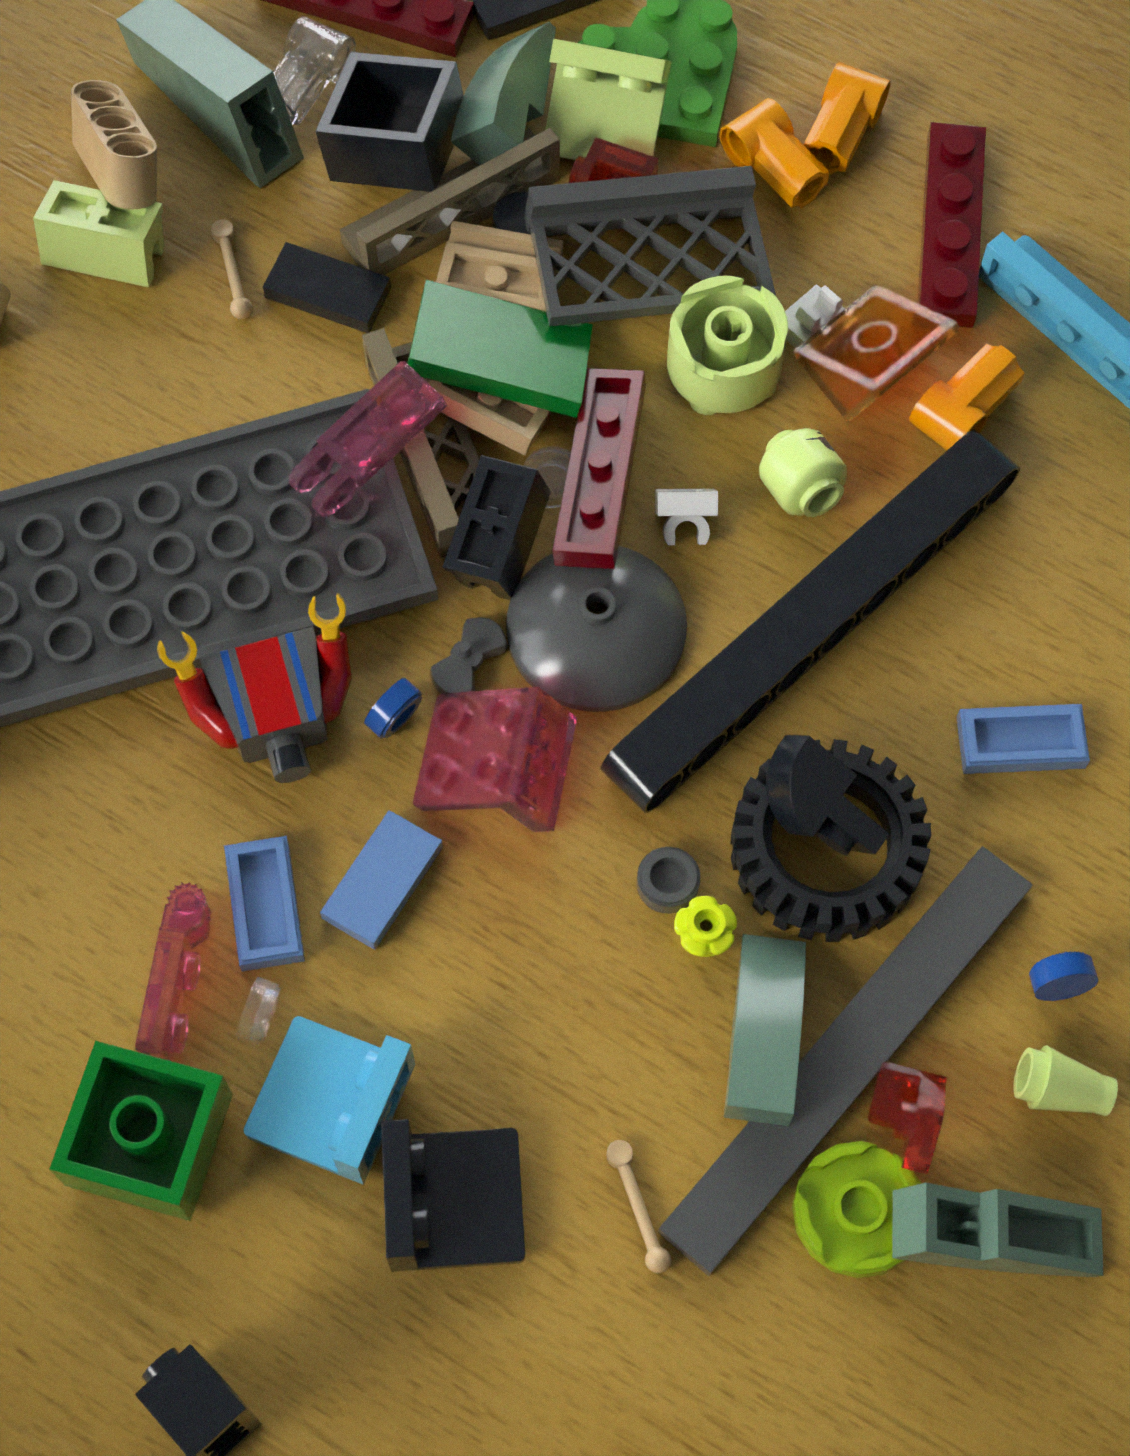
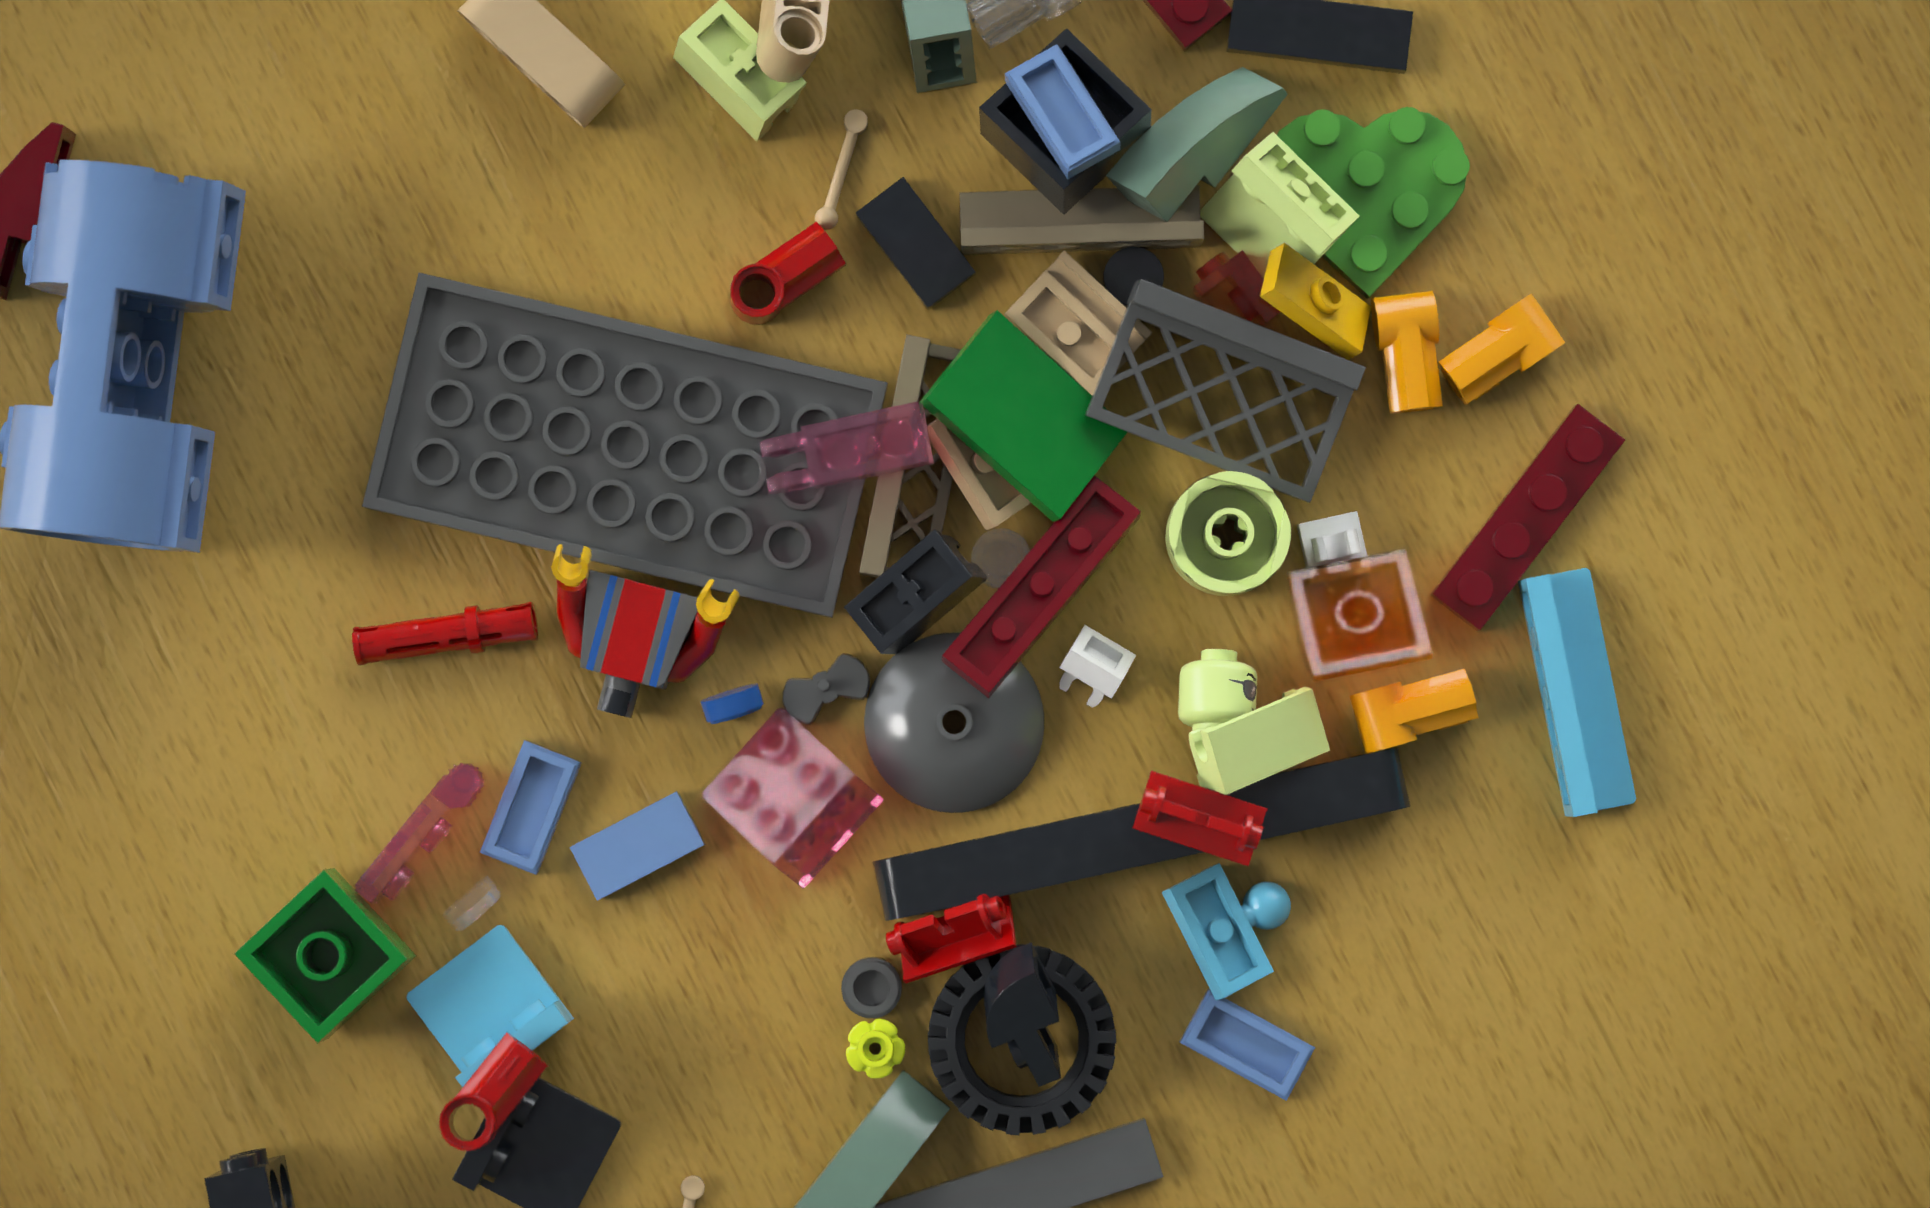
camera: 30 degrees right, 20 degrees up
(98, 796) = (432, 635): none -> red pin
(231, 359) = (789, 271): none -> red piece
(377, 1140) = (495, 1089): none -> red piece
(385, 93) = (1062, 111): none -> medium blue tile
(675, 144) = (1315, 301): none -> yellow plate
(696, 803) = (953, 939): none -> red hinge
(860, 557) = (1200, 818): none -> red hinge
(862, 476) = (1259, 742): none -> yellowish green hinge
(938, 650) = (1221, 928): none -> medium azure plate

